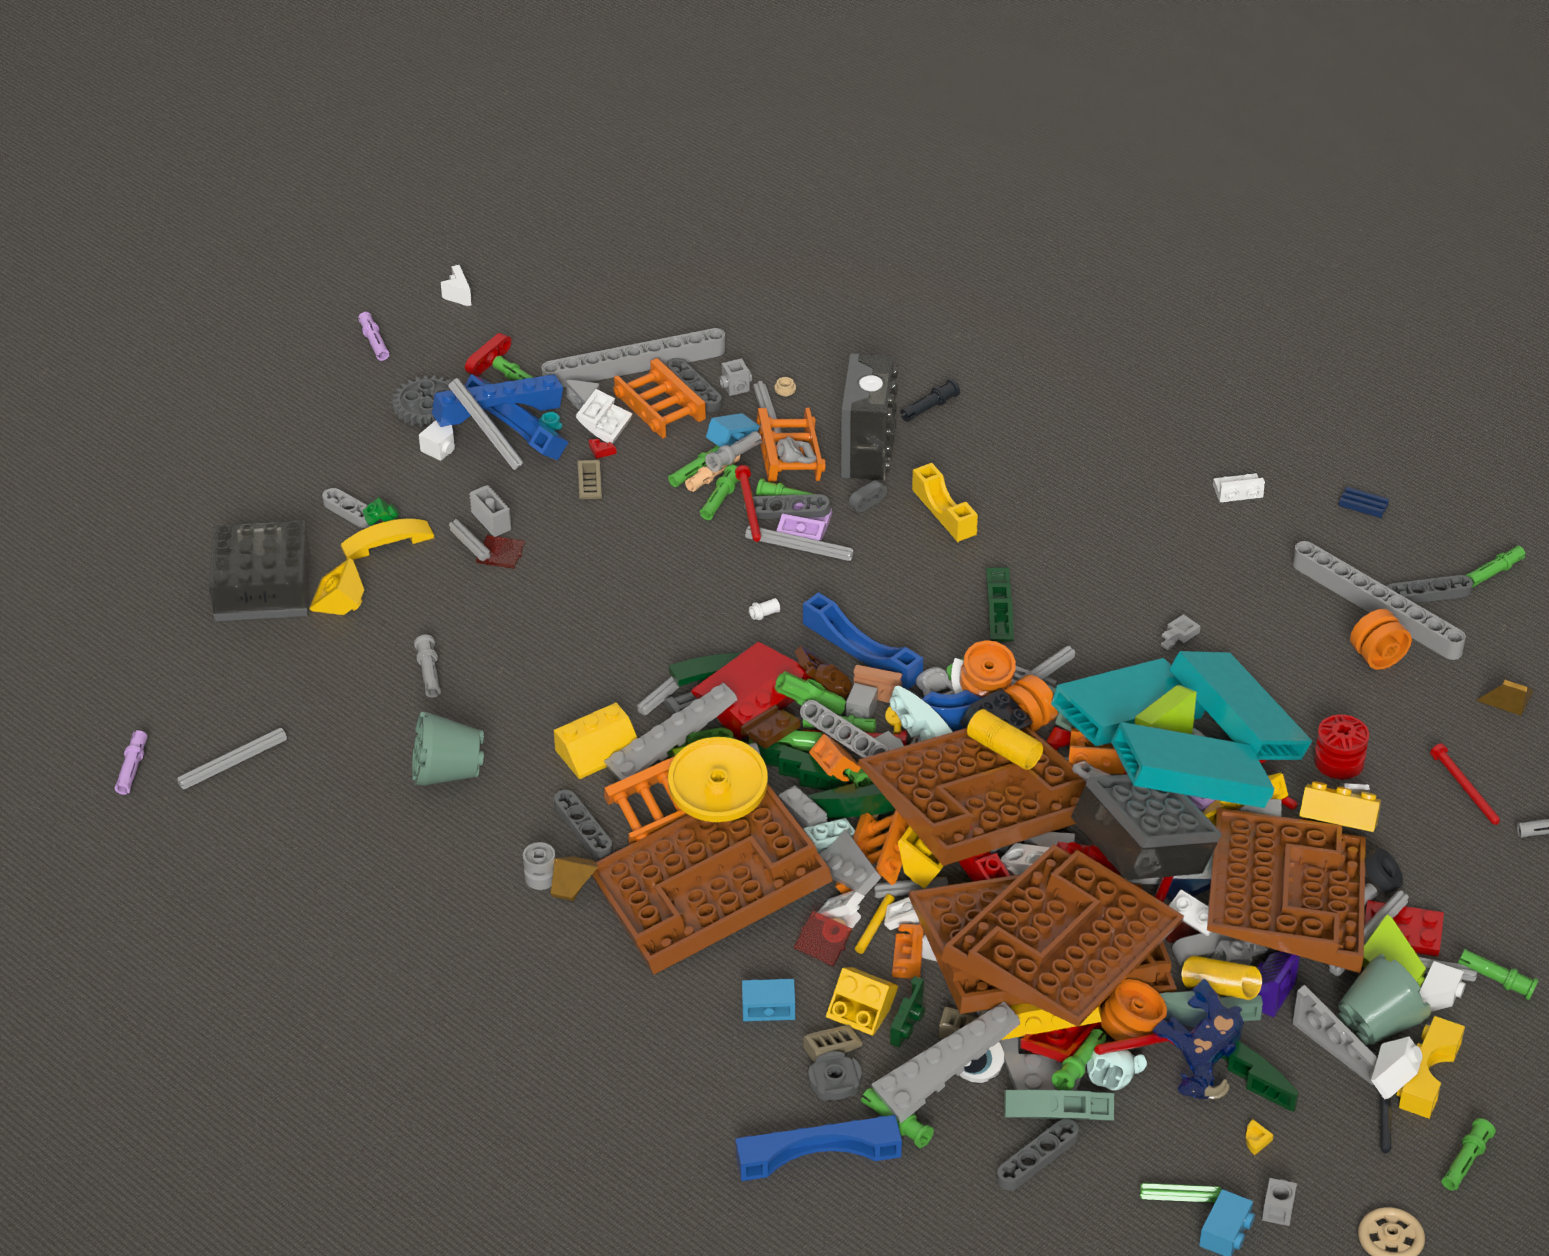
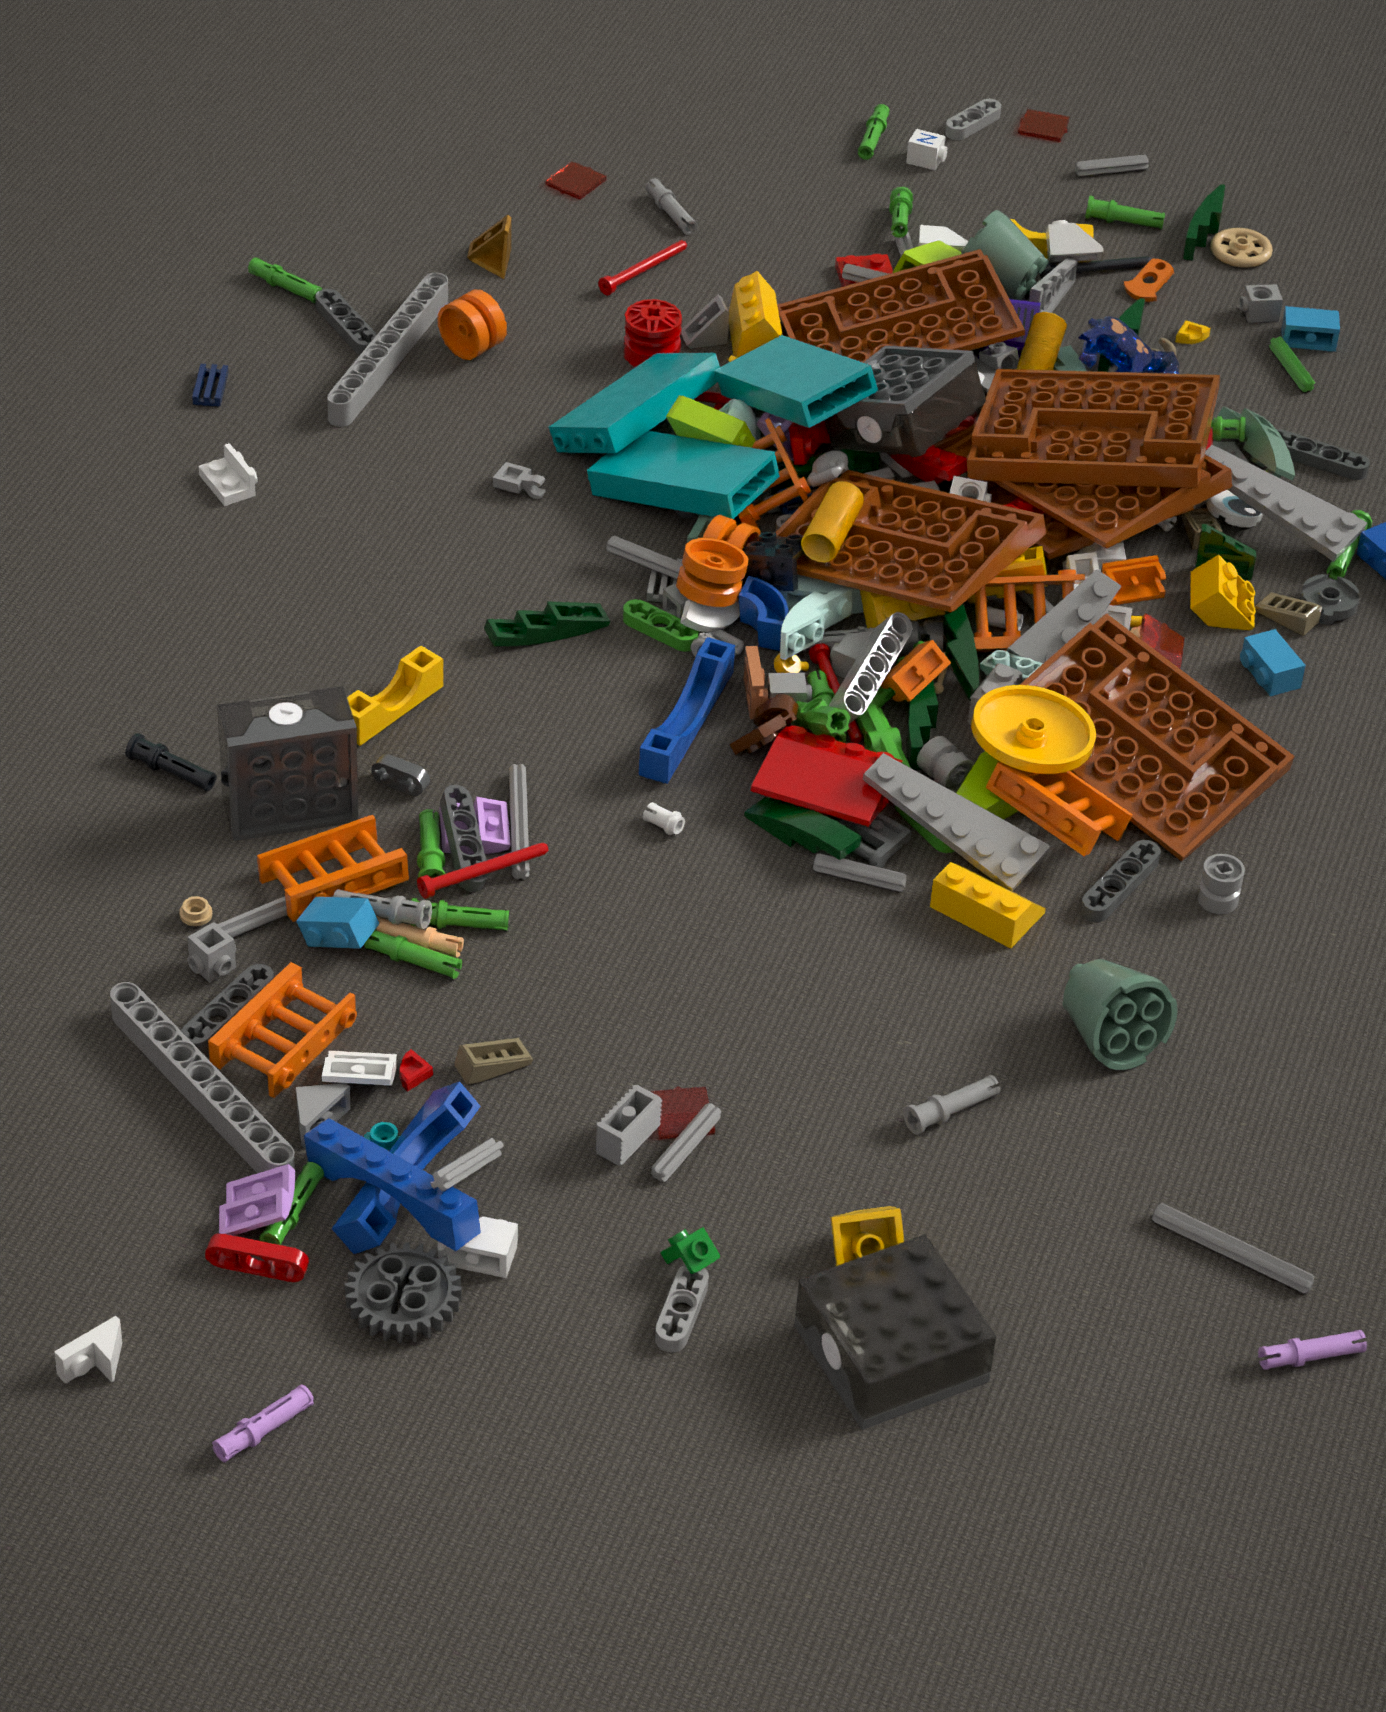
camera: 115 degrees left, 0 degrees up
(385, 533) = (731, 1237): yellow slope -> none
(522, 357) = (257, 1200): none -> lavender slope
(570, 875) = (1205, 840): pearl gold slope -> none
(770, 726) = (892, 736): reddish brown plate -> none
(789, 451) = (366, 840): light grey piece -> none
(1356, 1141) = (1156, 268): none -> orange piece
(1383, 870) = (812, 287): black tyre -> none
(1441, 1216) = (1204, 221): none -> dark green slope

